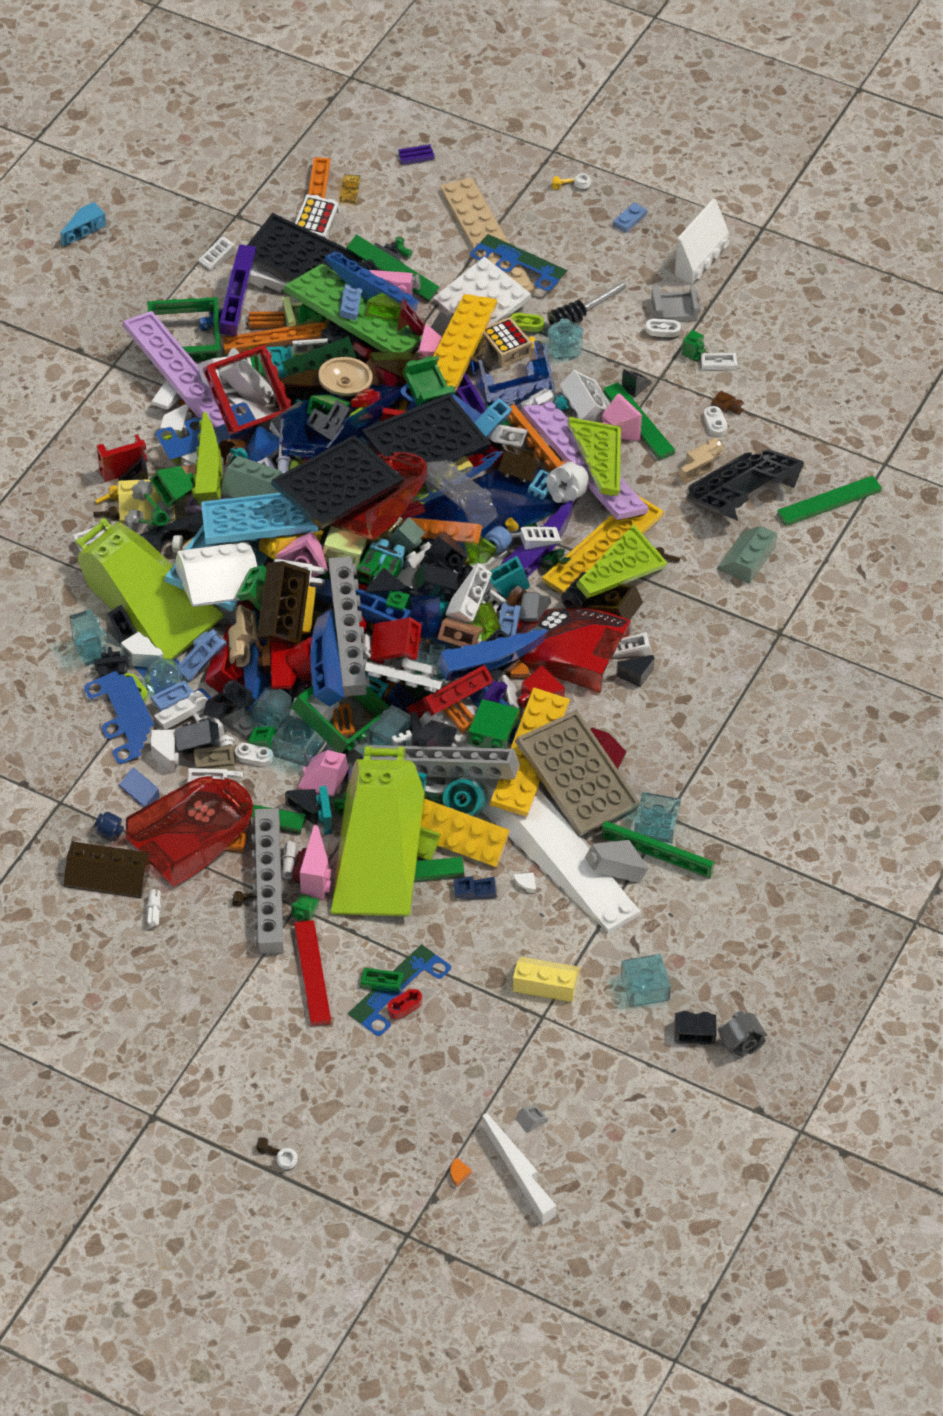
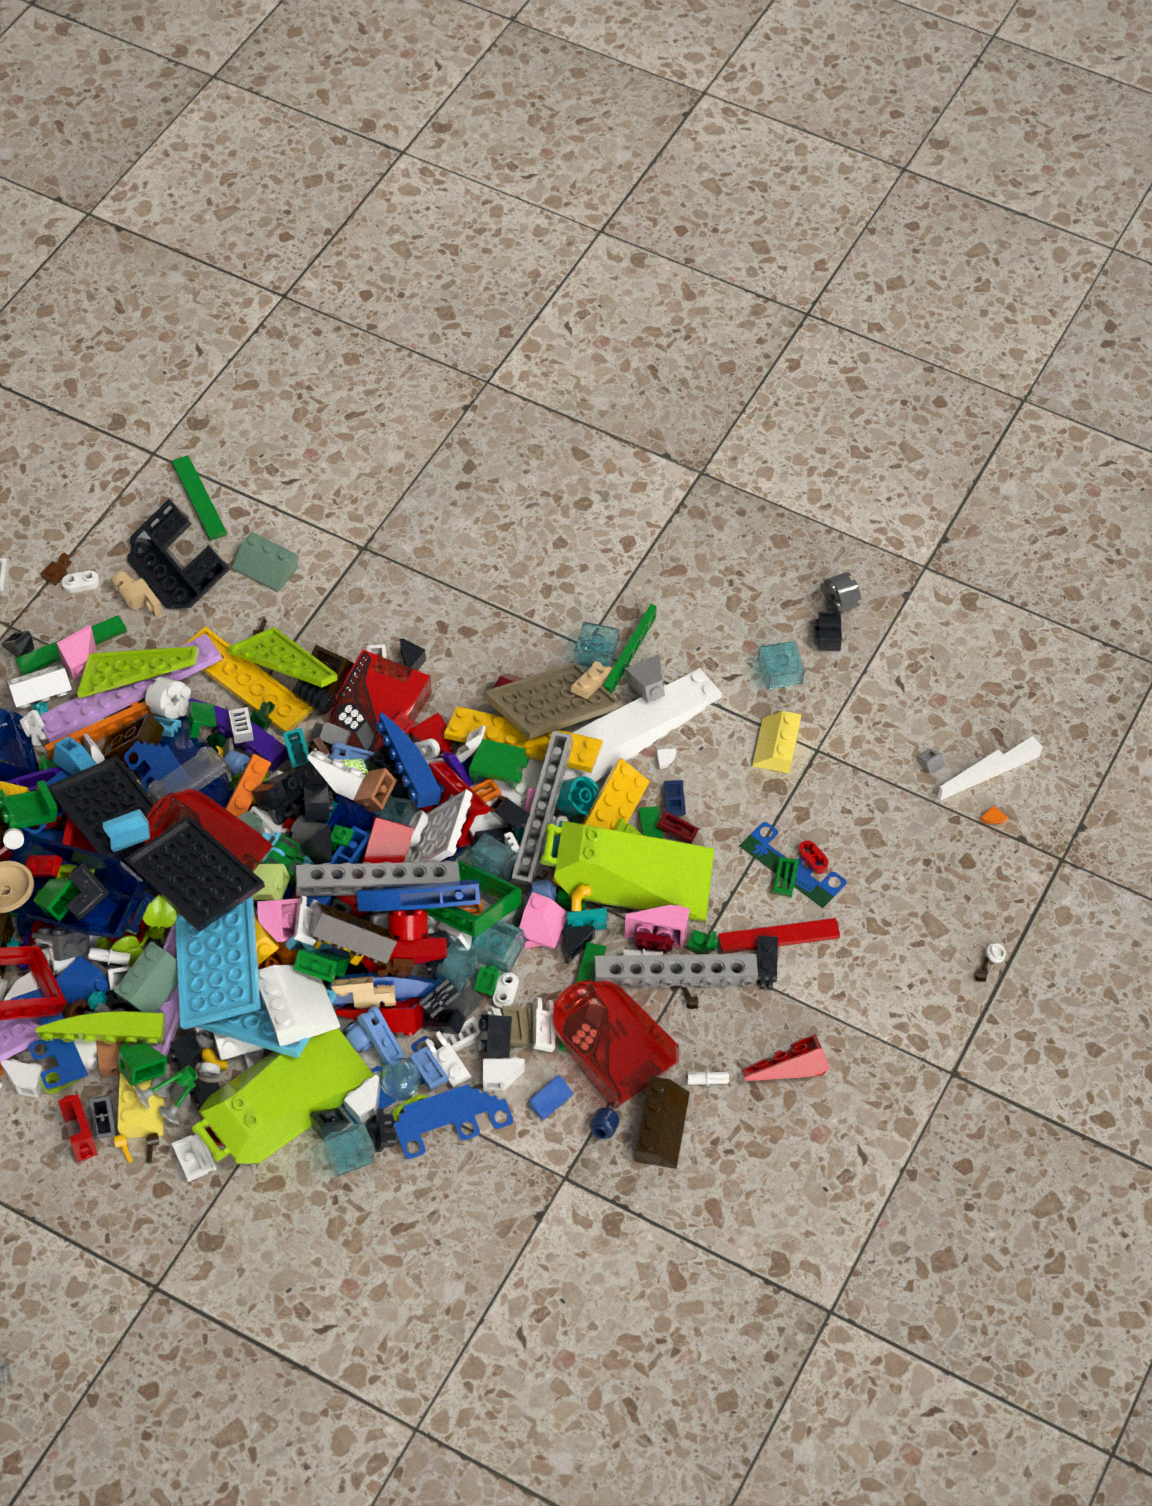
camera: 90 degrees left, 5 degrees up
(165, 976) = (802, 1060): none -> wedge
(280, 958) = (767, 960): none -> black hinge
(340, 790) = (577, 896): none -> yellow arm
(390, 441) = (127, 830): none -> medium azure panel
(395, 378) = (13, 838): none -> white tile
(431, 902) = (676, 830): none -> dark red tile
(518, 677) = (429, 748): none -> white plate
(524, 706) = (472, 743): none -> white slope
(544, 504) = (199, 715): none -> green panel
(544, 655) = (403, 722): none -> red tile
(608, 808) = (591, 680): none -> tan plate

